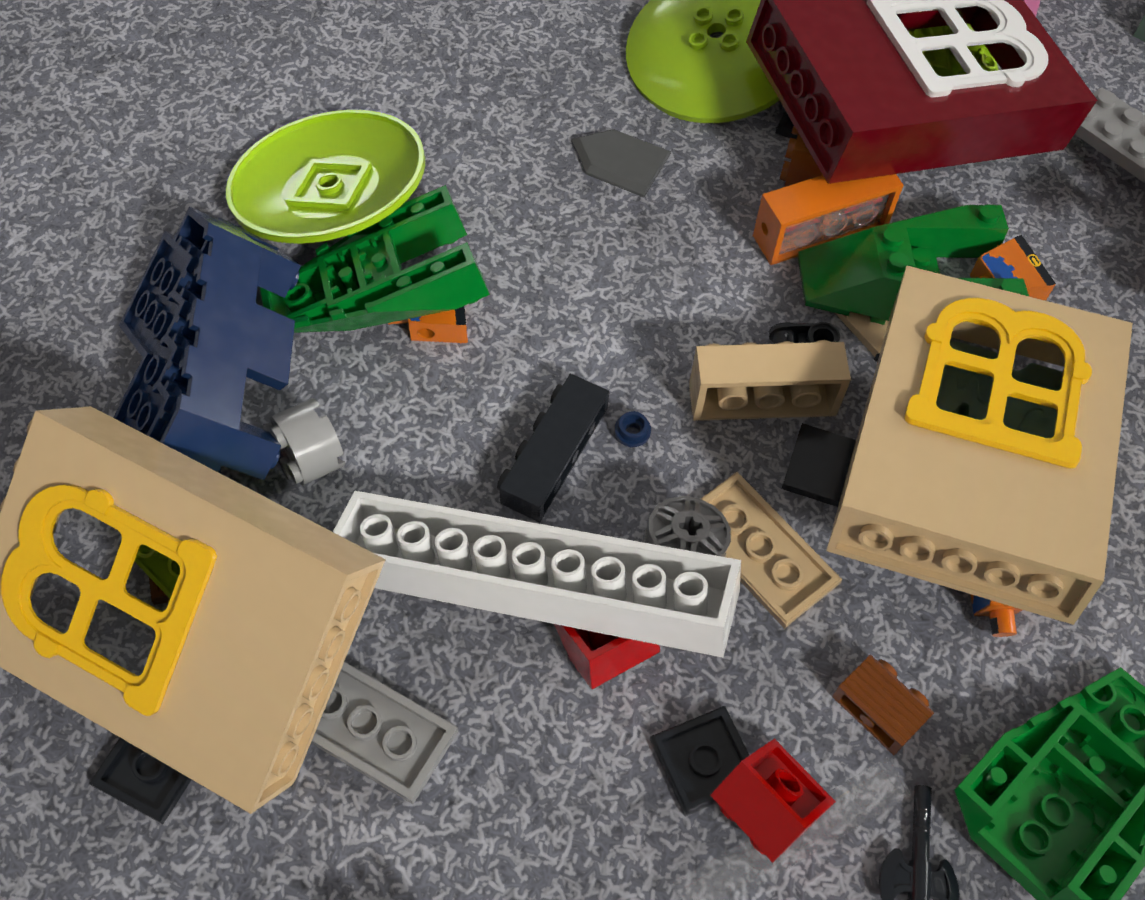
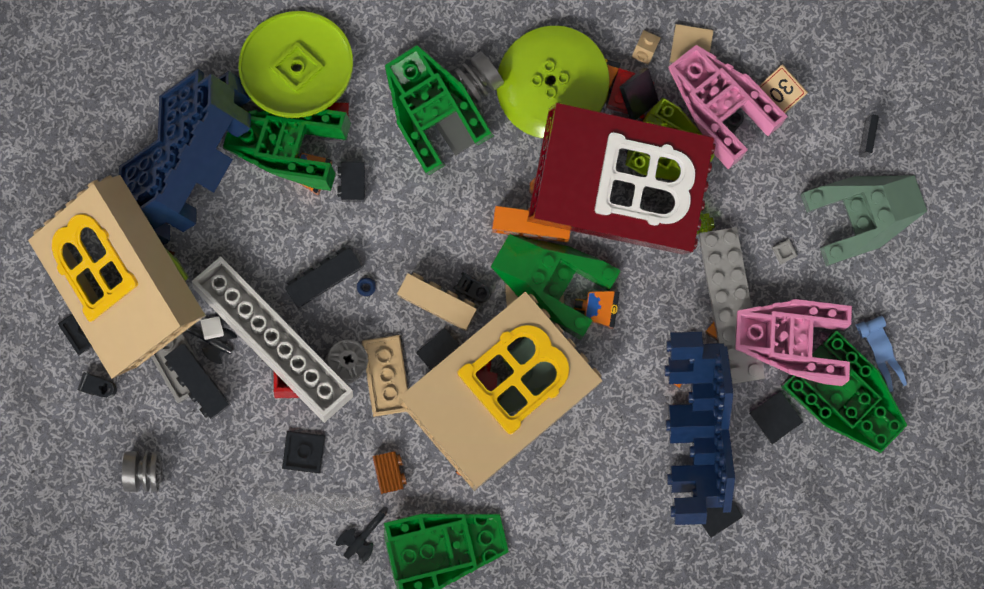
camera: 30 degrees right, 25 degrees up
(220, 860) = (94, 386): none -> black piece
(306, 441) = (211, 217): light grey brick -> none
(403, 629) = (211, 328): none -> white tile
(429, 654) = (217, 344): none -> black piece
(430, 730) = (197, 381): none -> black brick
(513, 292) = (352, 182): none -> black brick
(556, 125) = (423, 97): none -> green wedge
(612, 75) = (479, 76): none -> flat silver wheel
(772, 799) = (316, 484): red slope -> none

